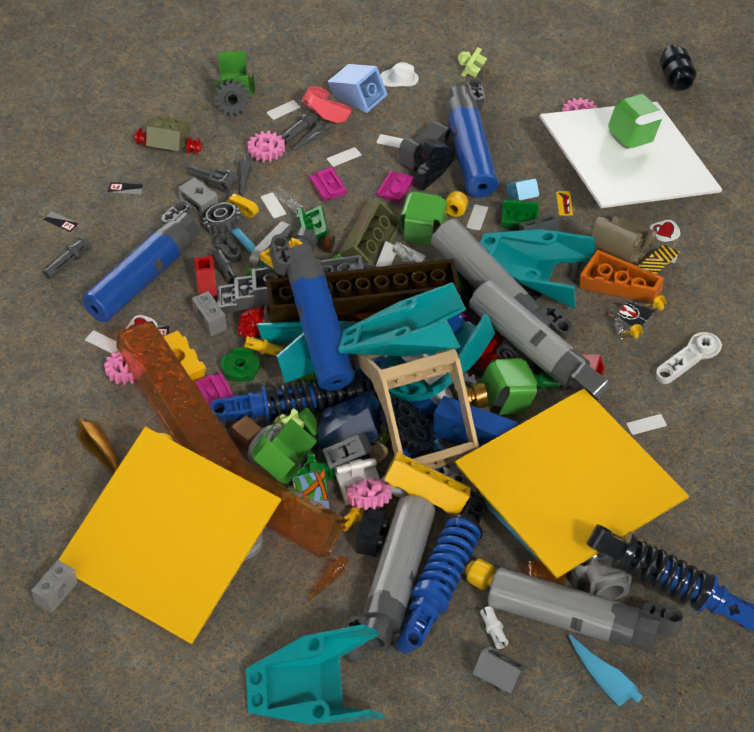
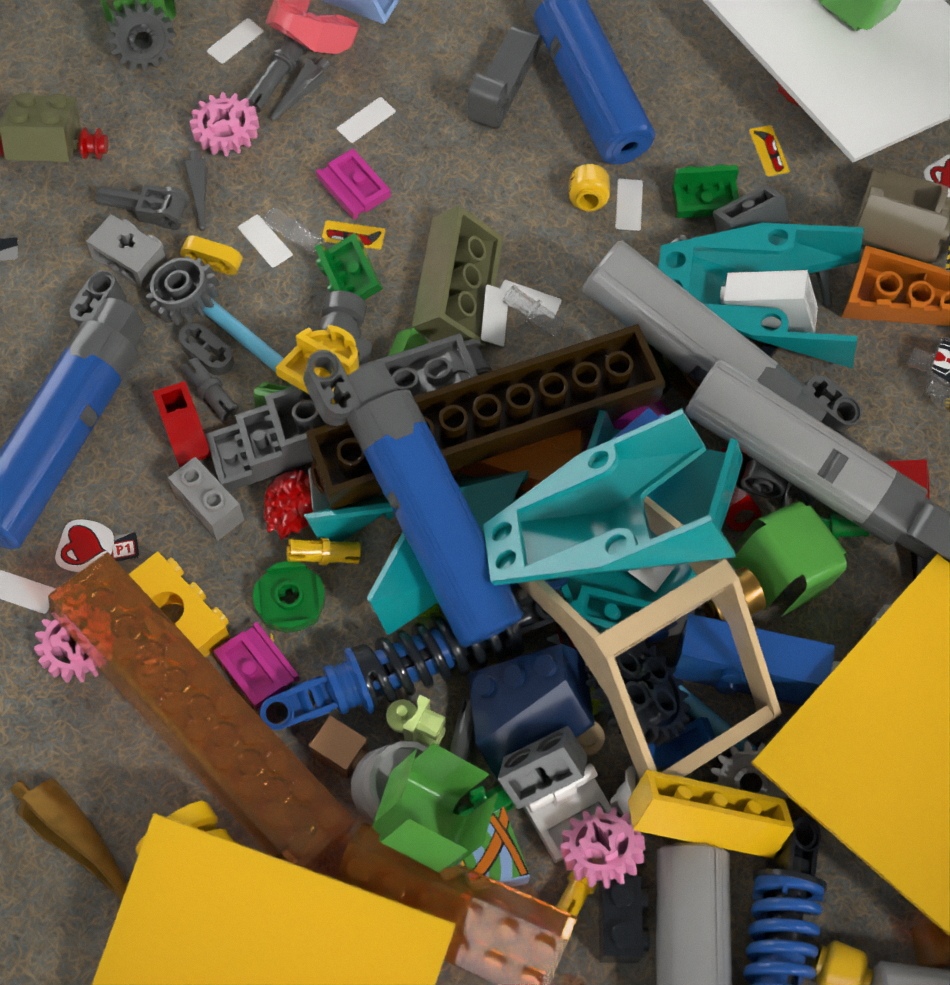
camera: 15 degrees left, 15 degrees up
(282, 228) = (282, 329): light grey beam -> none
(309, 420) = (448, 703): bright green slope -> none
(329, 211) = (337, 231): none -> yellow sticker
(329, 242) = (386, 307): reddish brown tile -> none
(389, 140) = (445, 74): white sticker -> none
(395, 187) = (473, 167): dark pink plate -> none
(419, 215) = (544, 220): bright green piece -> none
(437, 160) = (536, 102): black connector -> none
(522, 189) = (701, 142): medium azure panel -> none
(545, 261) = (777, 289): none -> white slope

